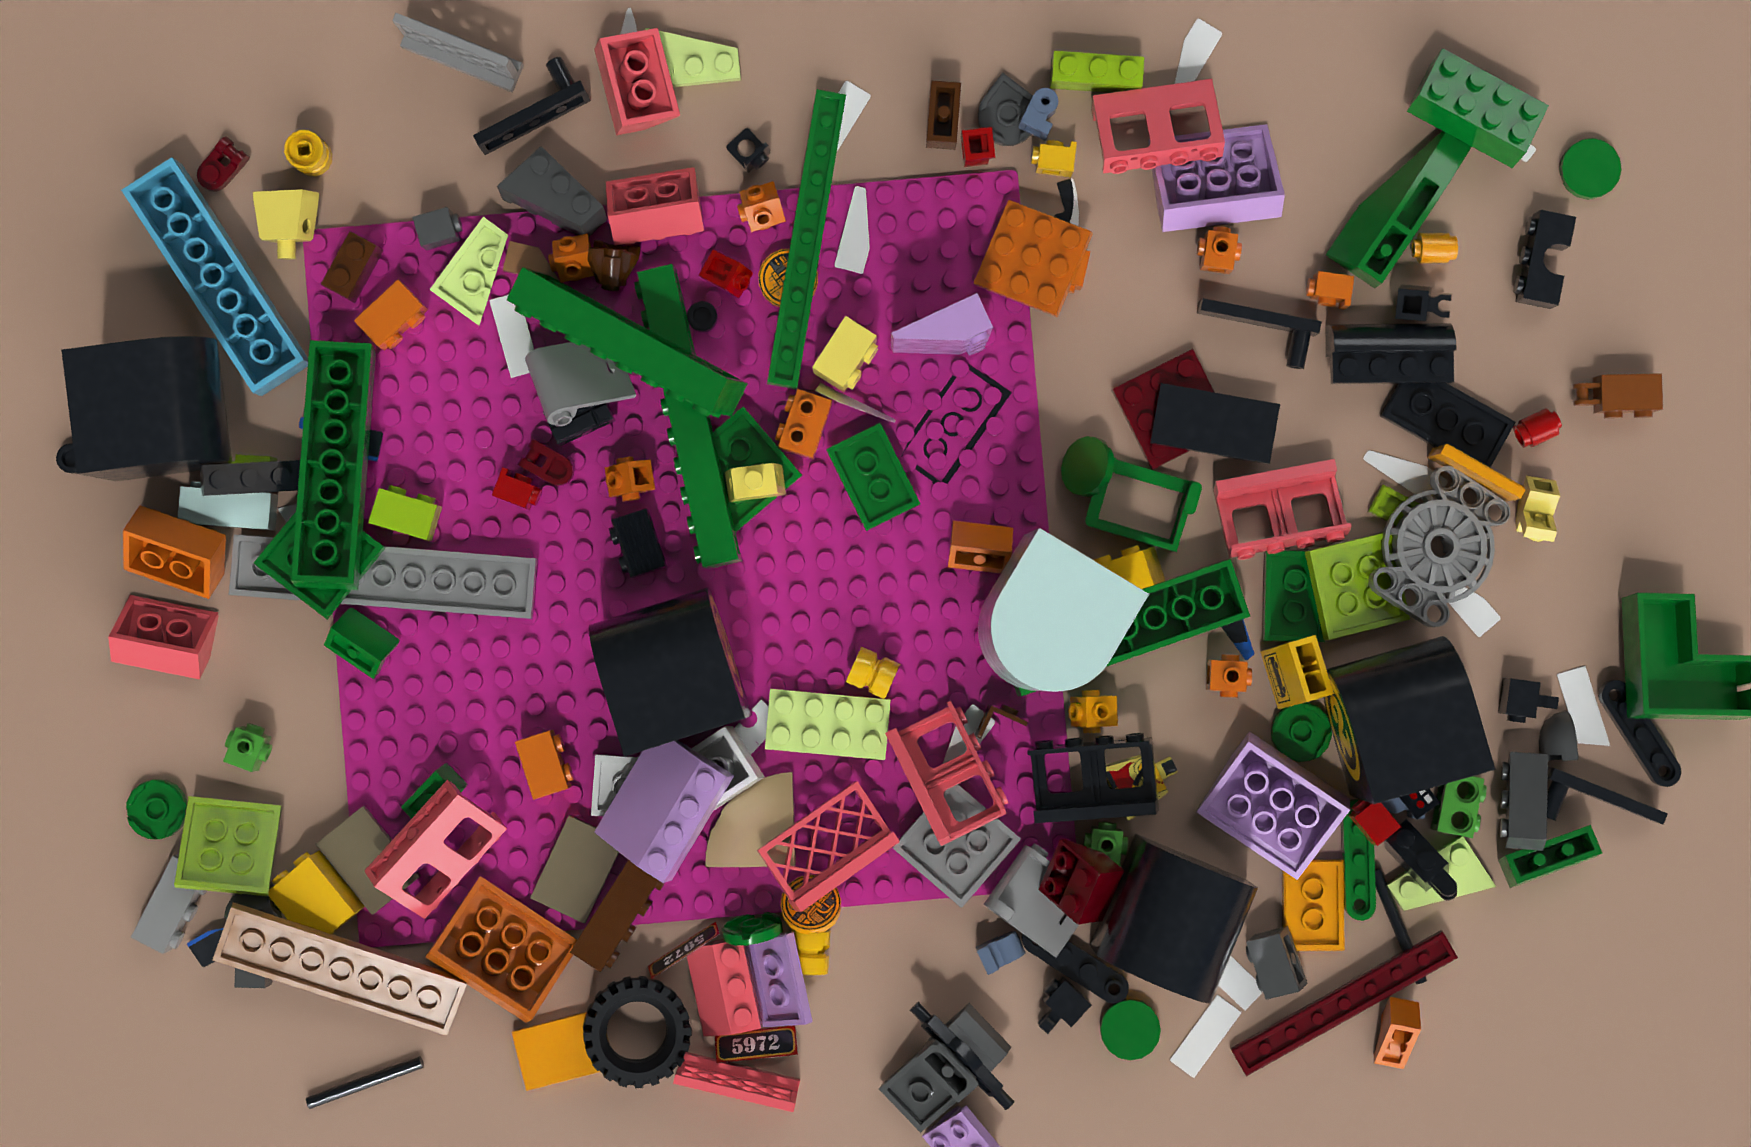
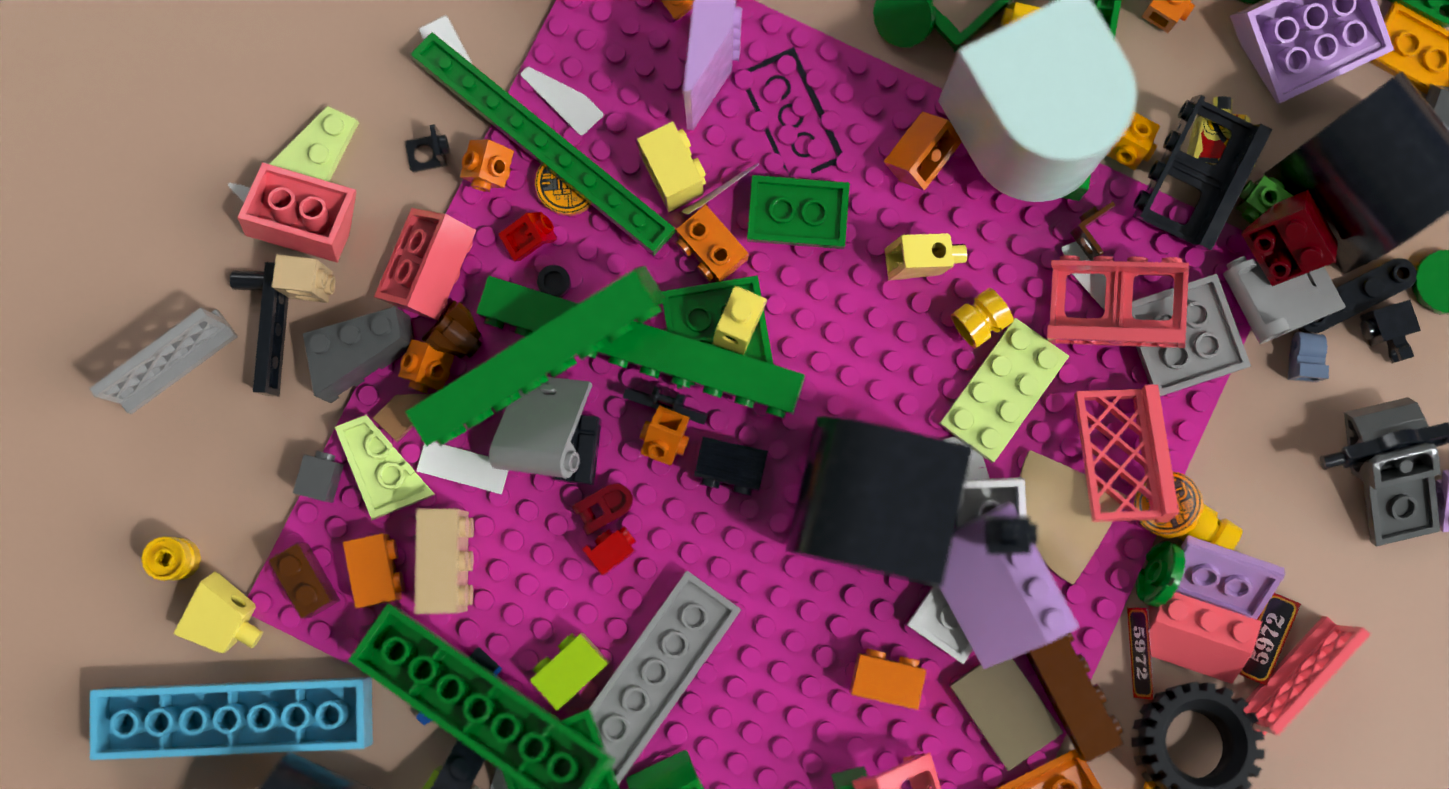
camera: 60 degrees left, 5 degrees down
(213, 174) = (136, 662): dark red plate -> none
(429, 366) = (443, 561): none -> tan brick
(584, 119) = (303, 278): none -> tan brick
(659, 474) = (678, 403): none -> black piece
(697, 786) = (1009, 534): none -> black brick
(888, 589) = (922, 256): none -> light yellow torso

